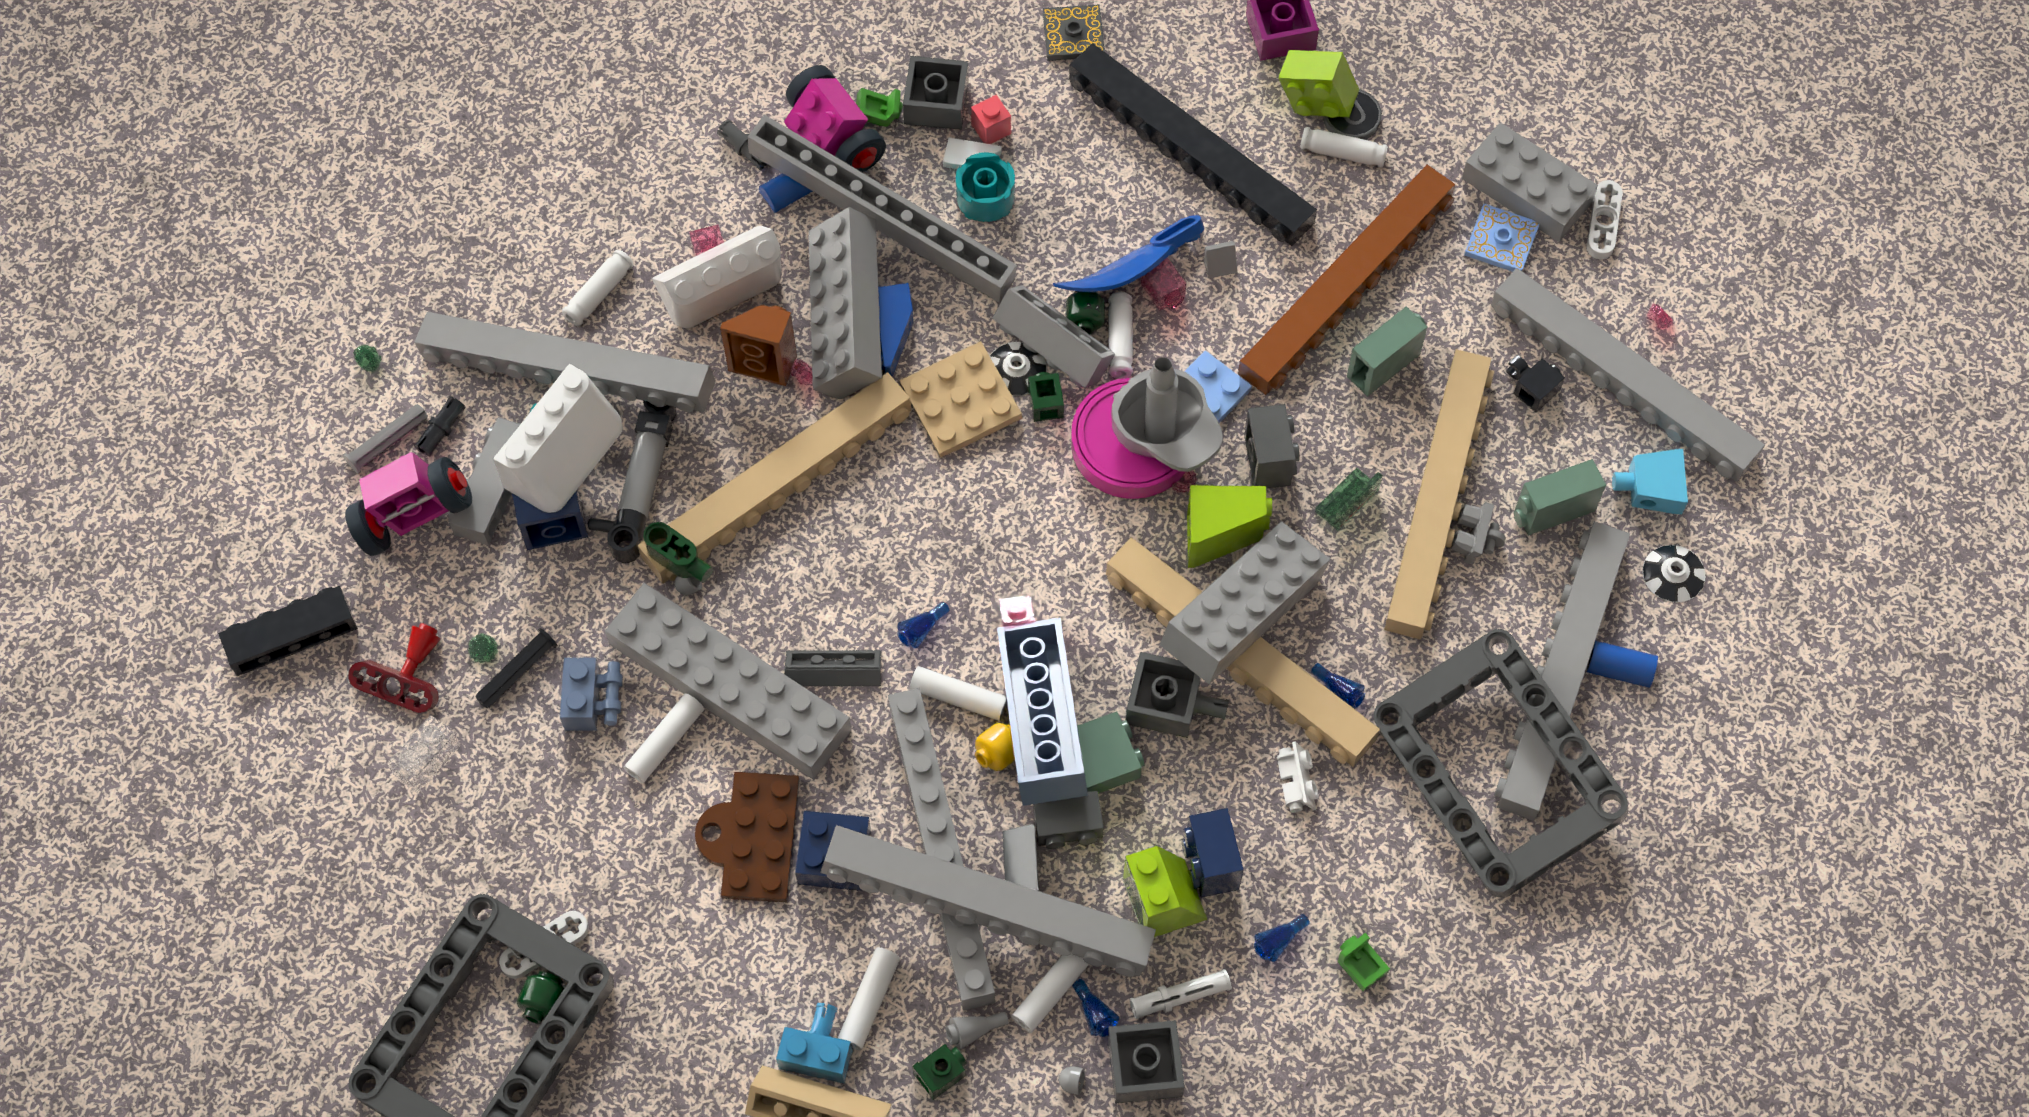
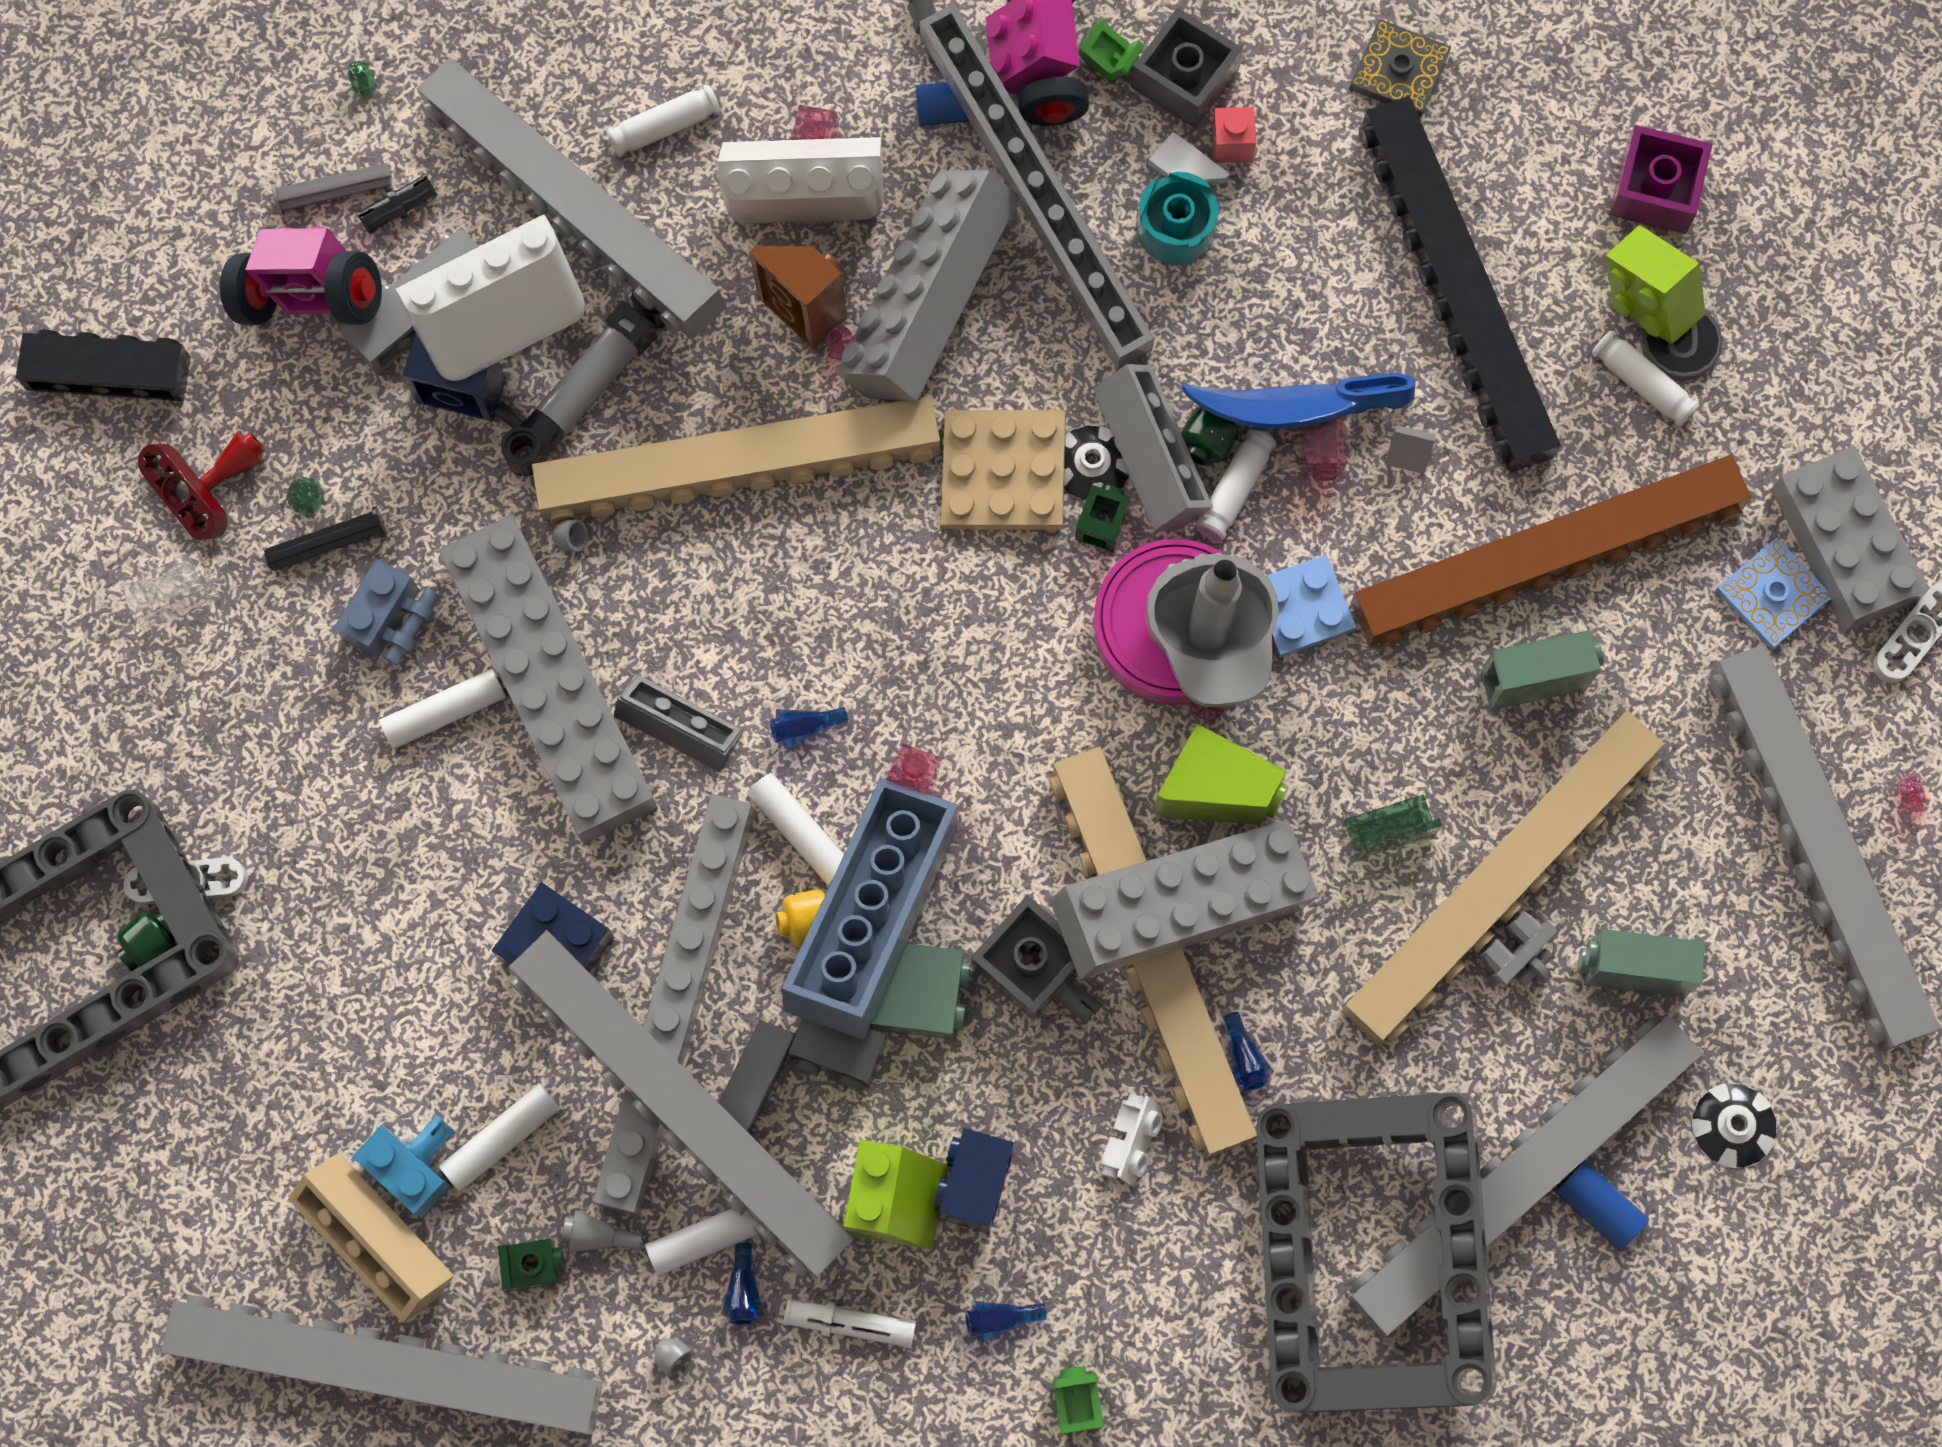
camera: 30 degrees right, 10 degrees up
(668, 557) = (574, 524): dark green piece -> none
(754, 836) = (480, 877): reddish brown plate -> none
(895, 323) = (976, 337): blue slope -> none
(1145, 1062) = (760, 1383): dark grey brick -> none
(1270, 446) = (1326, 725): dark grey brick -> none
(1535, 384) = (1704, 802): black brick -> none
(1655, 481) = (1778, 1001): medium azure torso -> none

